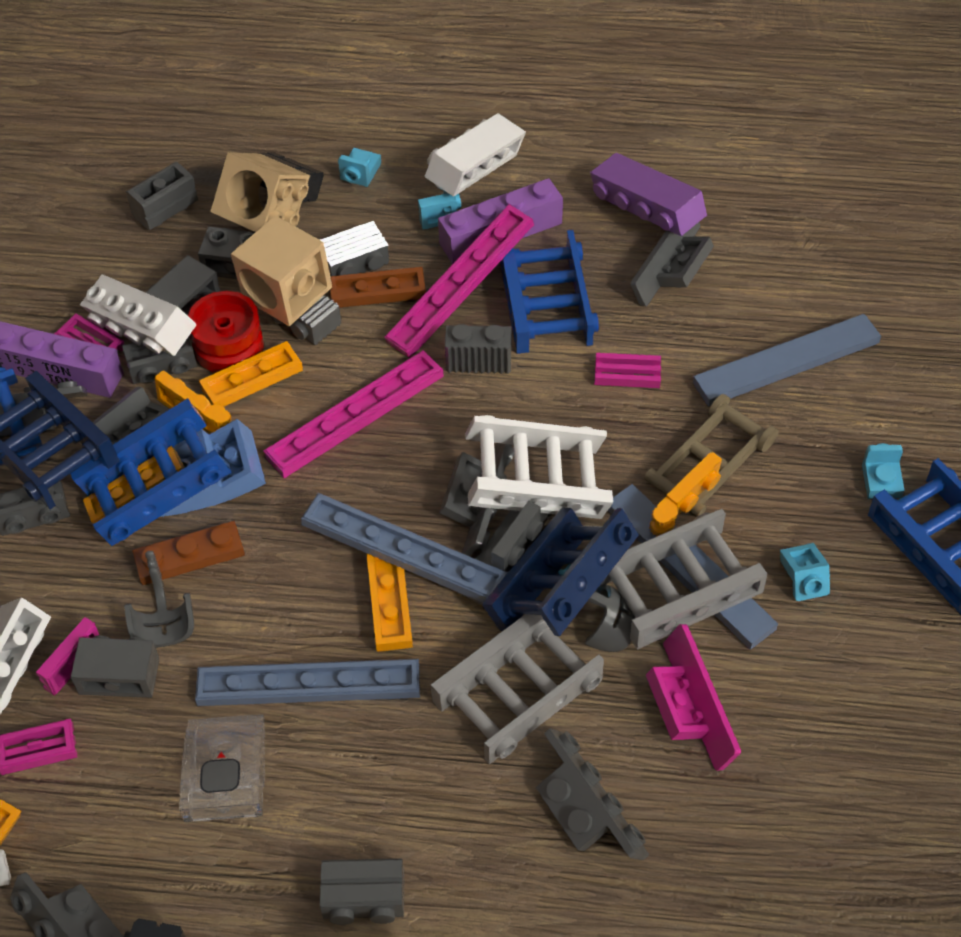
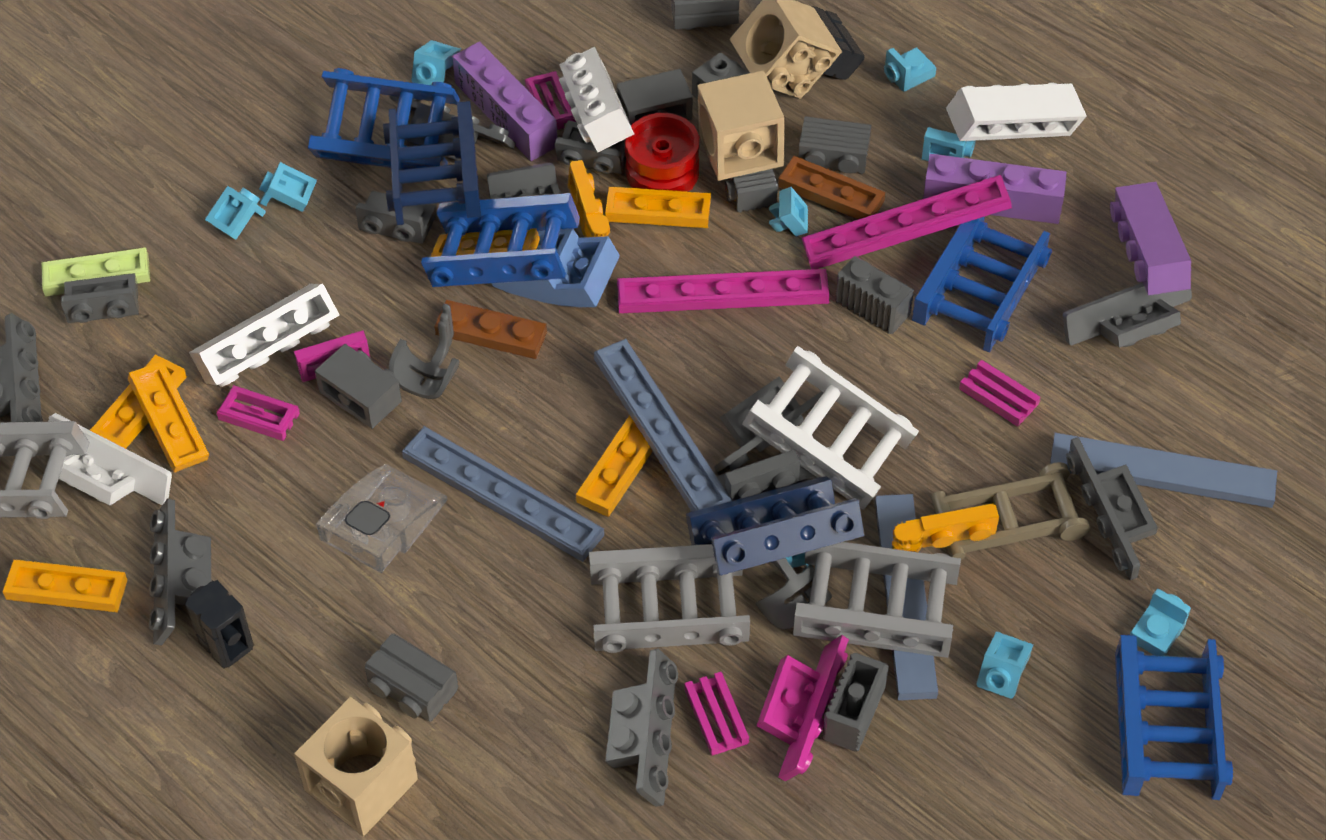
camera: 35 degrees right, 0 degrees up
(362, 322) = (790, 213): none -> medium azure tile
(636, 740) = (706, 685): none -> dark pink tile
(732, 670) = (855, 701): none -> dark grey brick
(783, 402) = (1118, 504): none -> dark grey bracket

